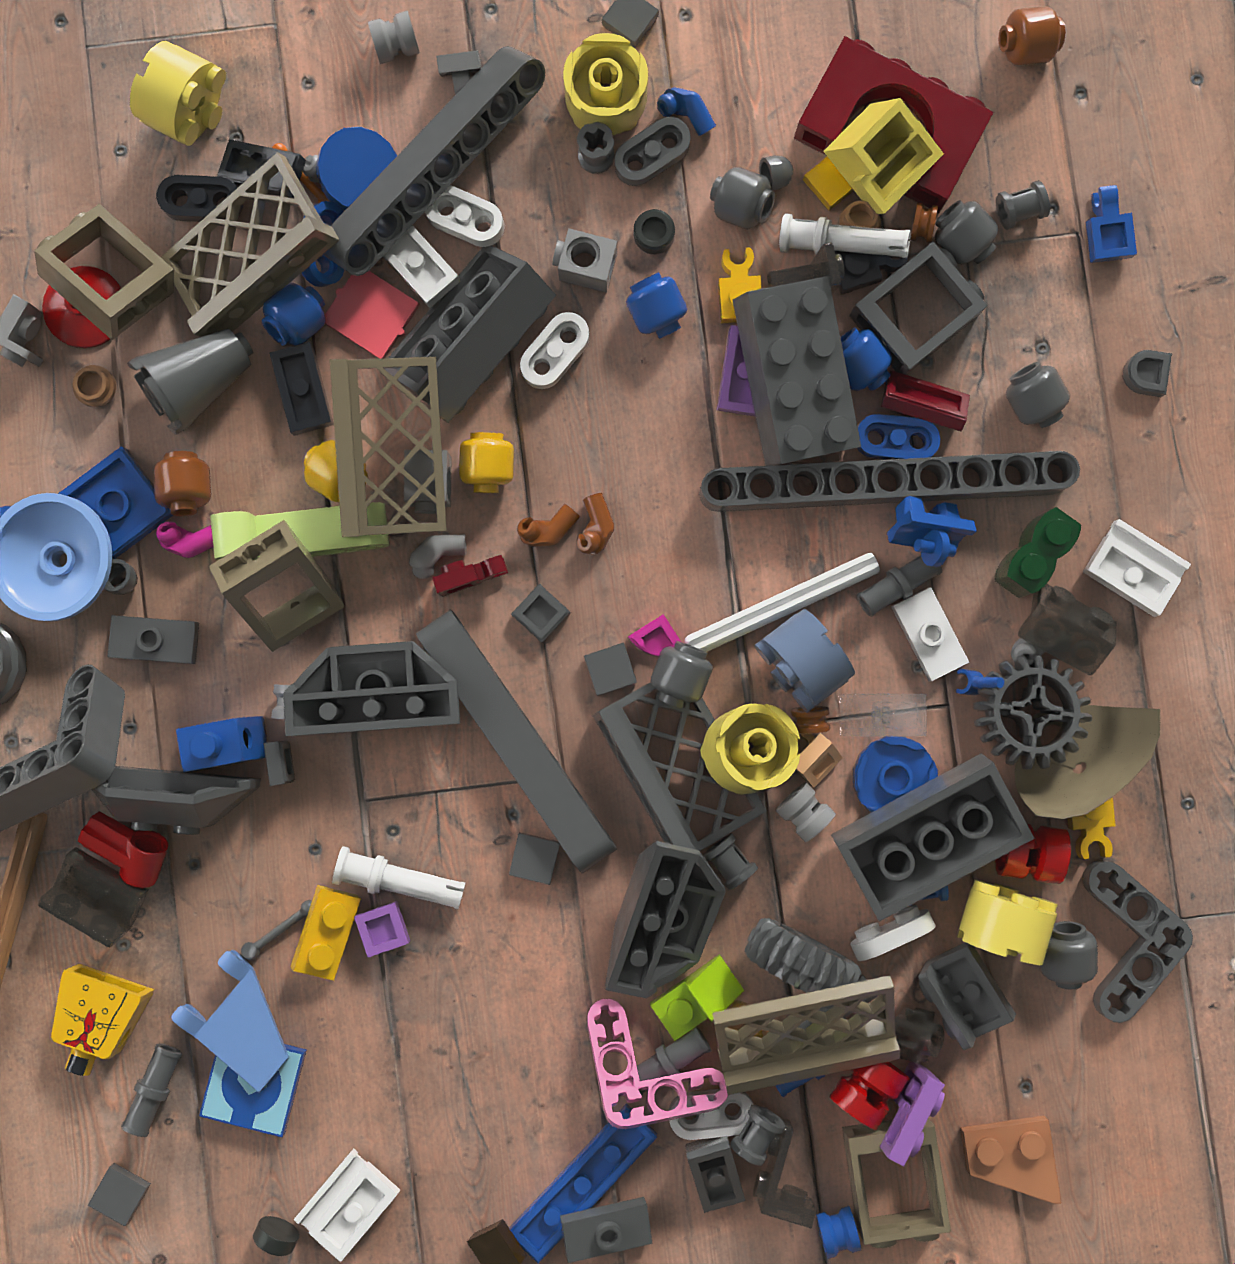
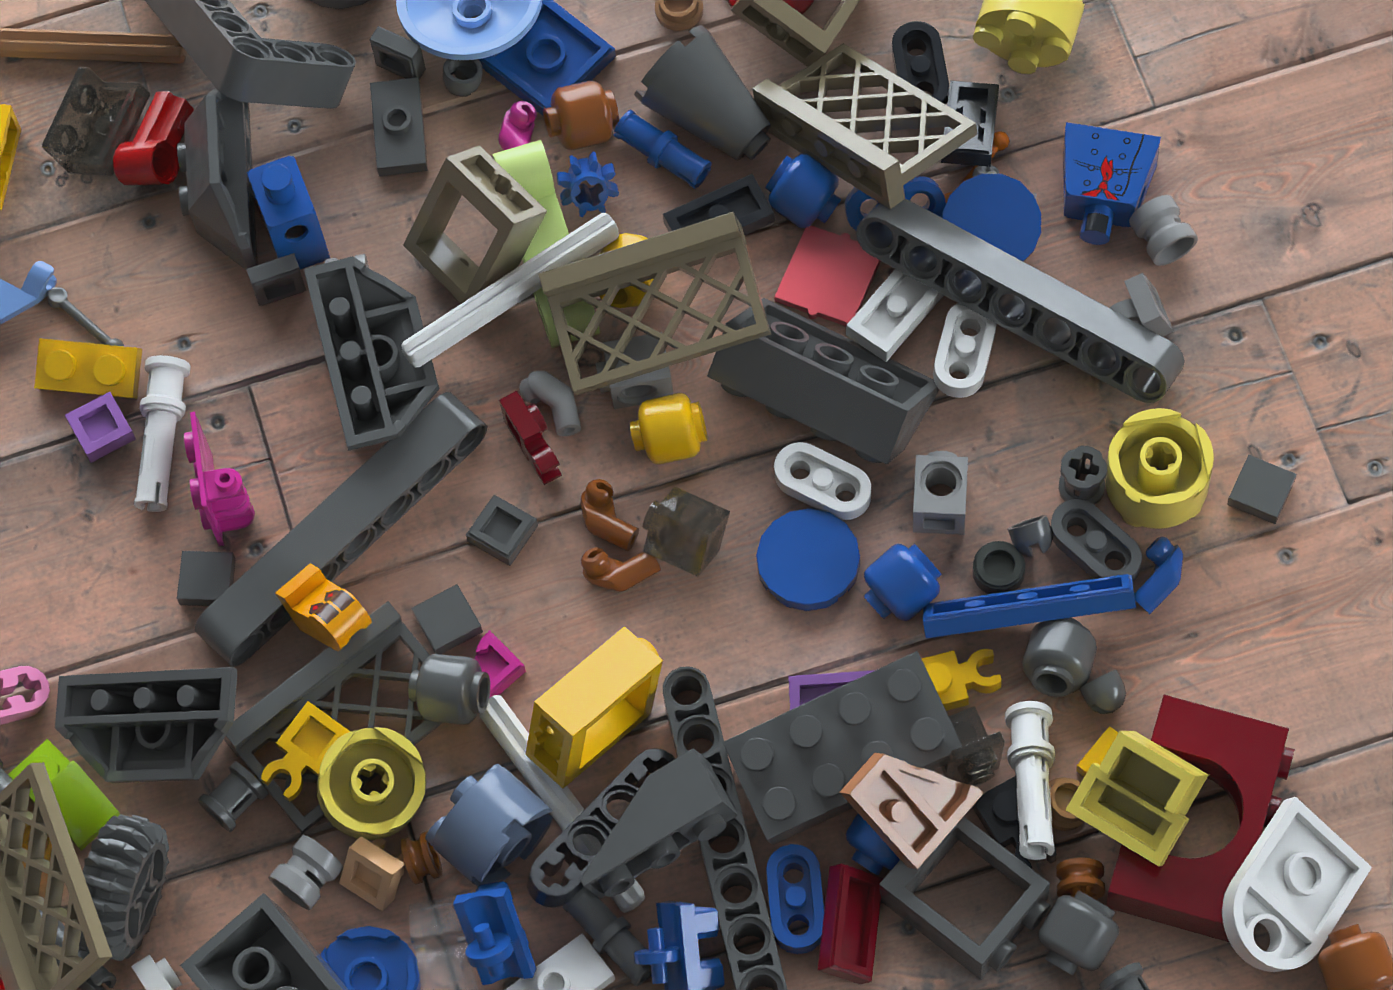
camera: 85 degrees right, 20 degrees down
(86, 629) = (397, 54): none -> dark grey tile
(227, 423) = (662, 149): none -> blue pin
(248, 488) = (583, 197): none -> blue gear
(336, 72) = (1105, 177): none -> blue torso
(341, 566) = (507, 291): none -> white axle
(478, 840) = (218, 492): none -> dark pink hinge
(580, 465) = (685, 530): none -> clear smoke brick
(596, 764) = (322, 608): none -> light orange leg
(617, 376) = (808, 559): none -> blue tile
(633, 198) = (1031, 532): none -> dark grey hinge
(701, 209) = (1029, 606): none -> blue tile
(707, 794) = (305, 746): none -> yellow plate
(726, 559) = (593, 706): none -> yellow window
(820, 570) = (593, 821): none -> black beam
(829, 513) = (666, 815): none -> dark grey slope
(864, 327) = (908, 805): none -> wing
(894, 671) = (494, 934): none -> blue hips
(969, 67) = (1295, 886): none -> white tile

